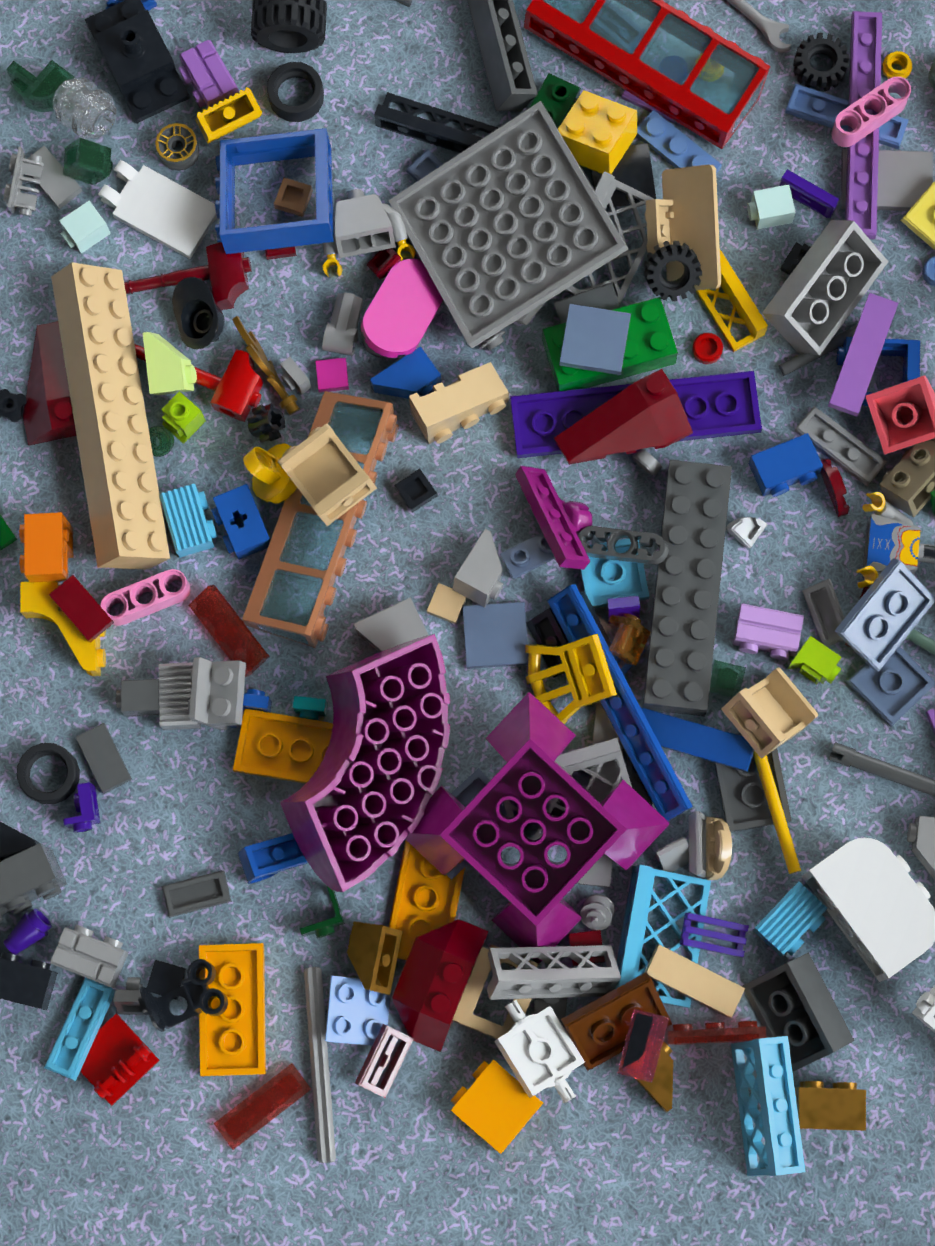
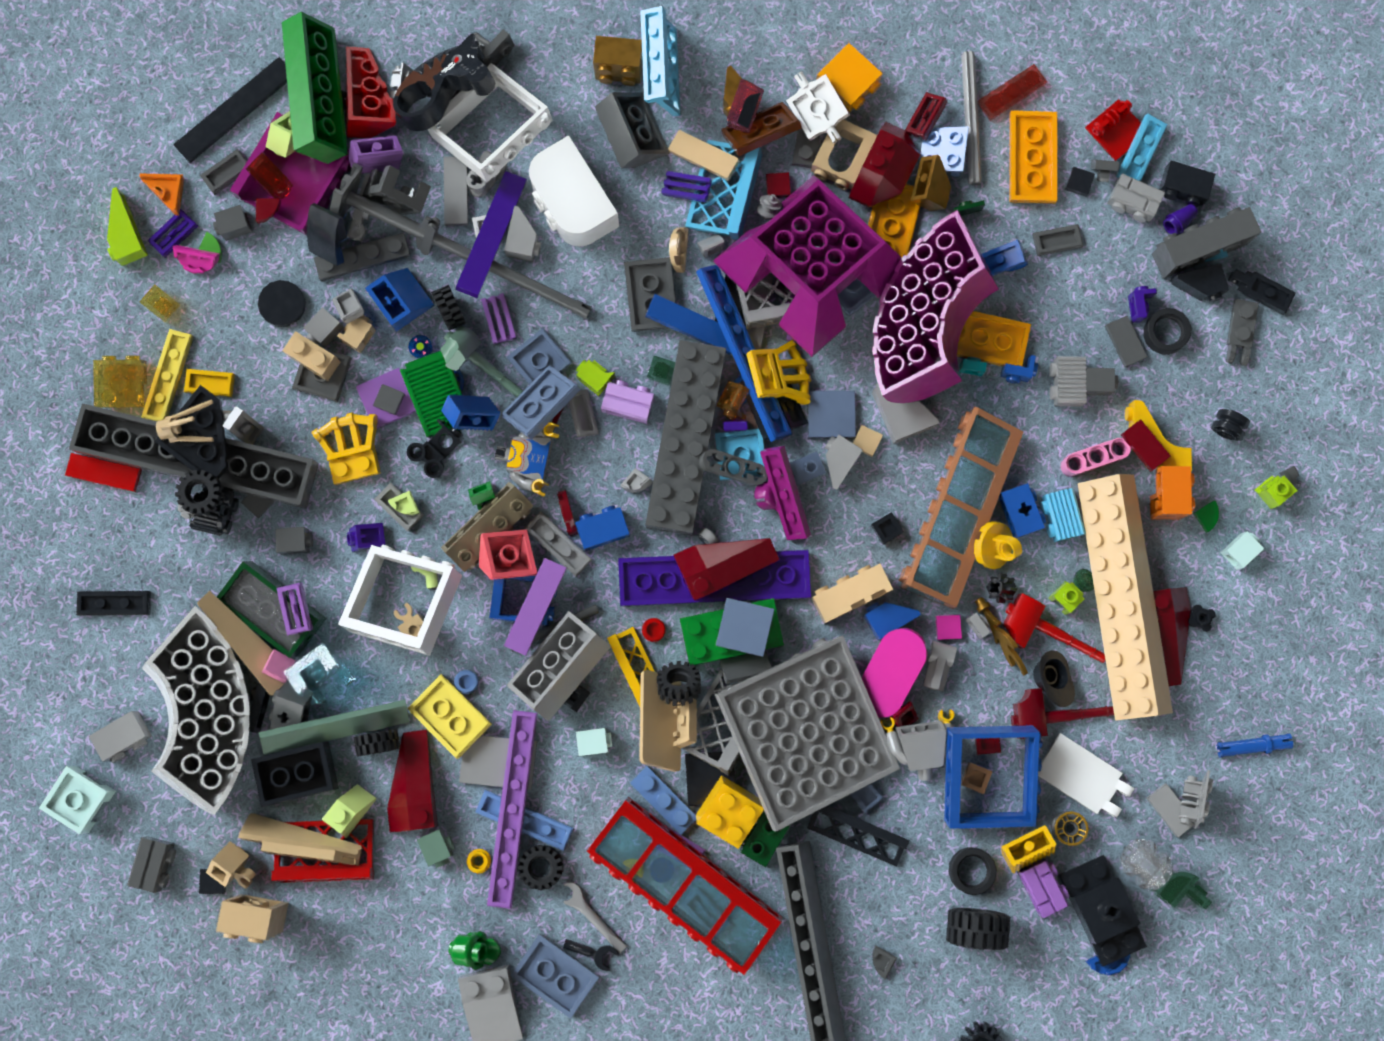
camera: 175 degrees right, 5 degrees up
(84, 227) = (1145, 761): light aqua brick -> none
(87, 161) = (1143, 816): clear green brick -> none
(167, 367) = (1079, 635): yellowish green slope -> none
(195, 993) = (1087, 153): black piece -> none
(217, 692) = (1043, 375): light grey bracket -> none
(228, 629) = (1033, 429): clear red plate -> none
(326, 474) = (958, 528): tan panel -> none
(556, 979) = (805, 152): light grey fence -> none
(697, 844) = (693, 249): light grey tile -> none
(714, 1033) = (691, 118): clear red plate -> none
(770, 712) = (634, 336): tan panel -> none
(777, 814) = (634, 267): yellow bar -> none
(790, 920) = (632, 192): medium azure brick -> none
(810, 194) = (563, 751): dark purple tile -> none
(877, 100) = (496, 817): bright pink beam -> none

